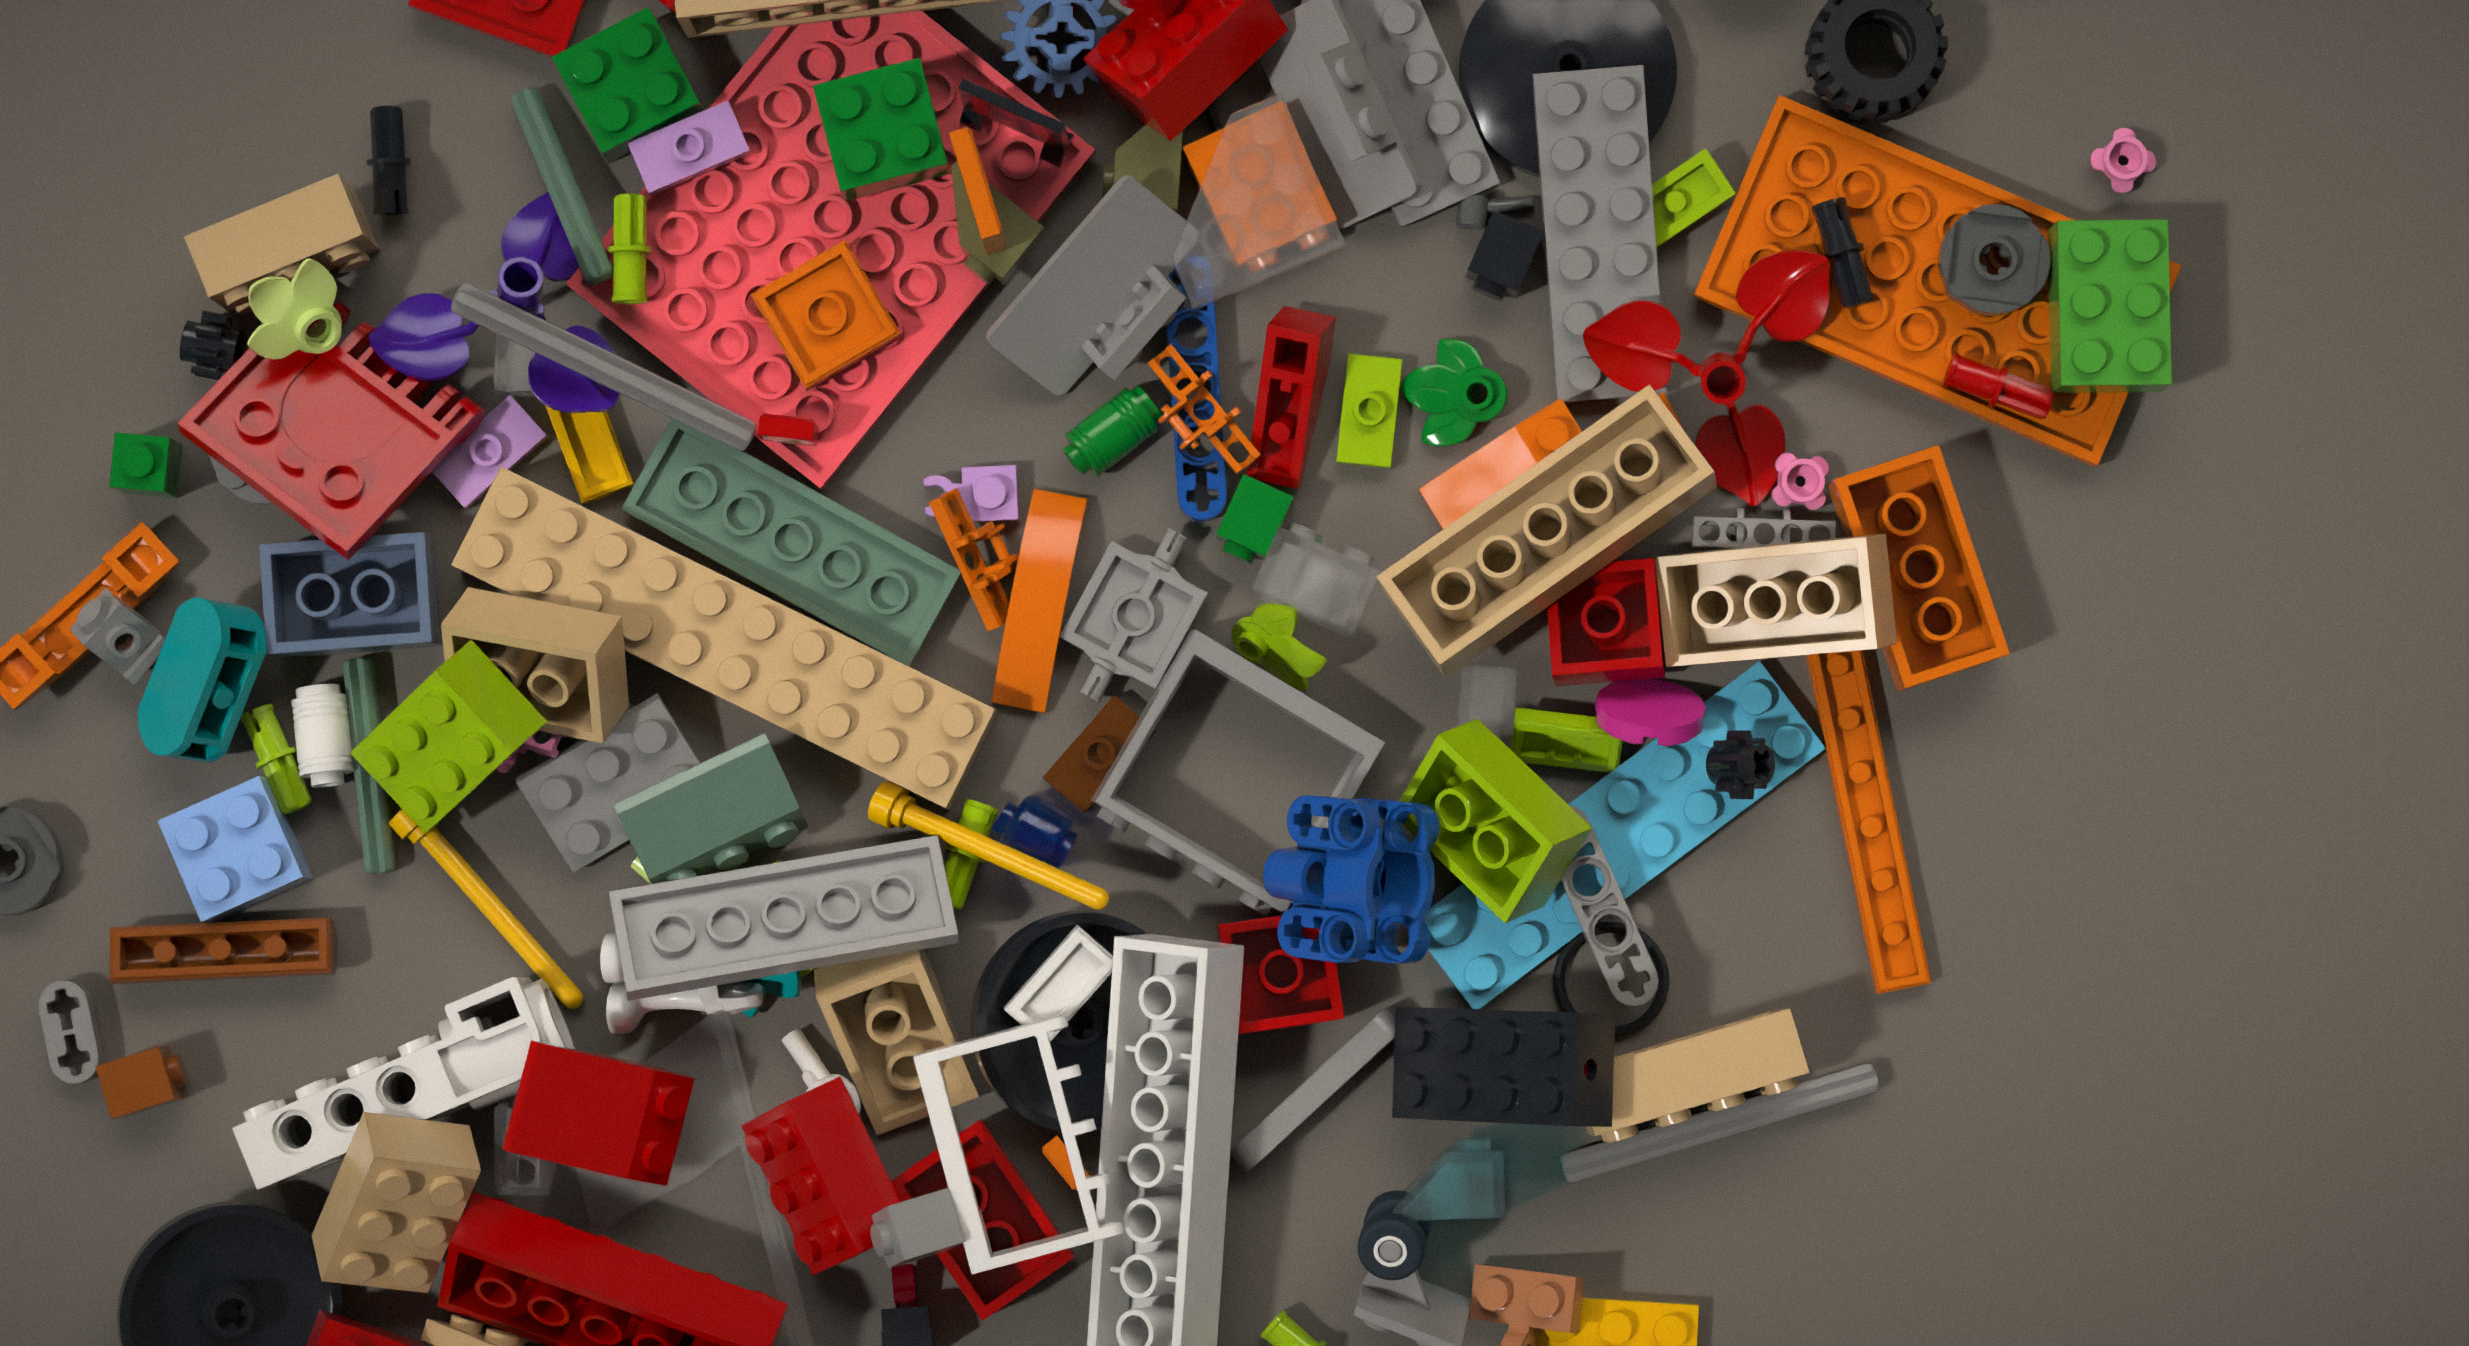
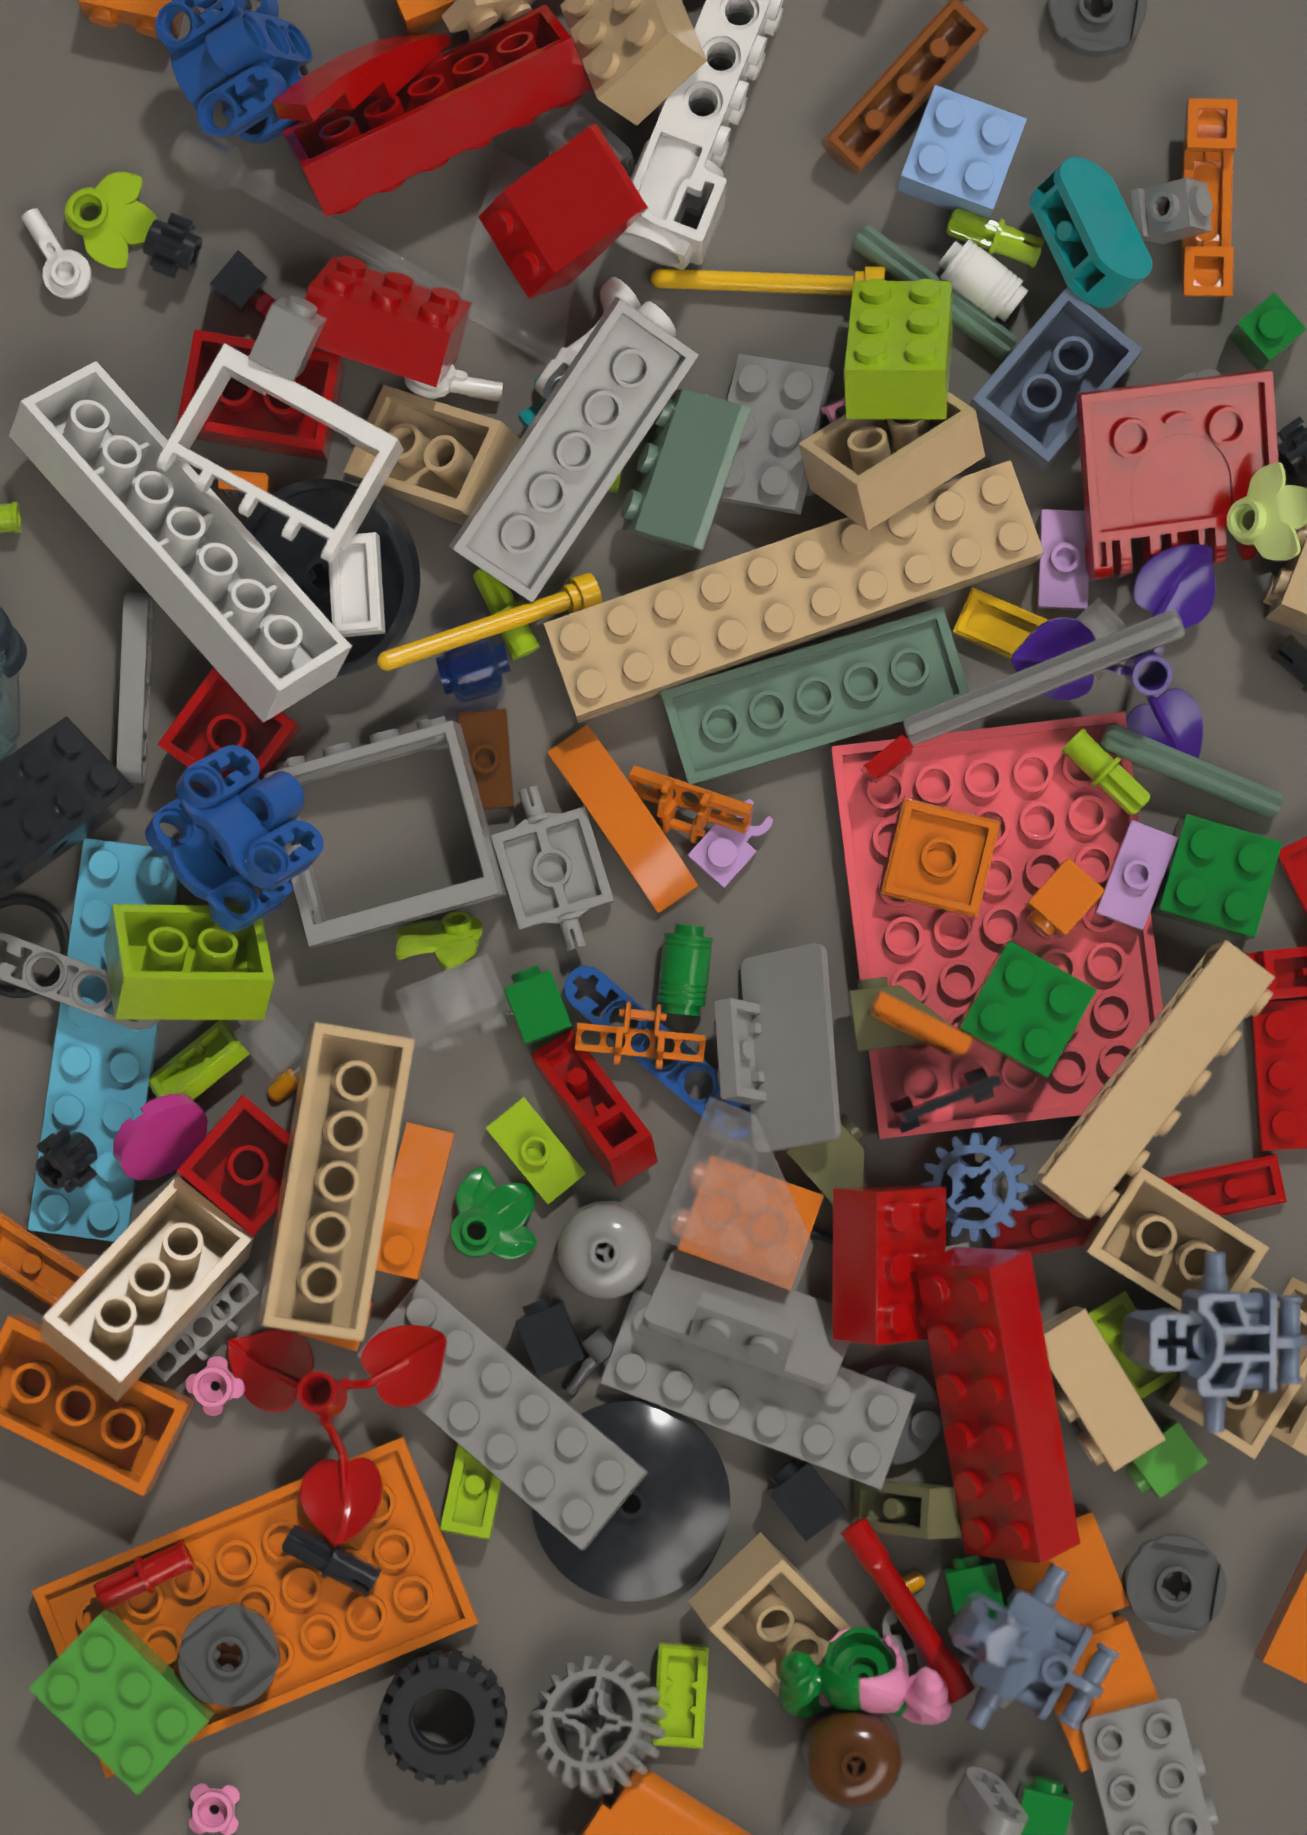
camera: 135 degrees right, 0 degrees up
(765, 185) = (1062, 899): none -> orange brick
(1389, 302) = (620, 1228): none -> light grey cylinder
(1512, 658) = (284, 1085): none -> light orange piece

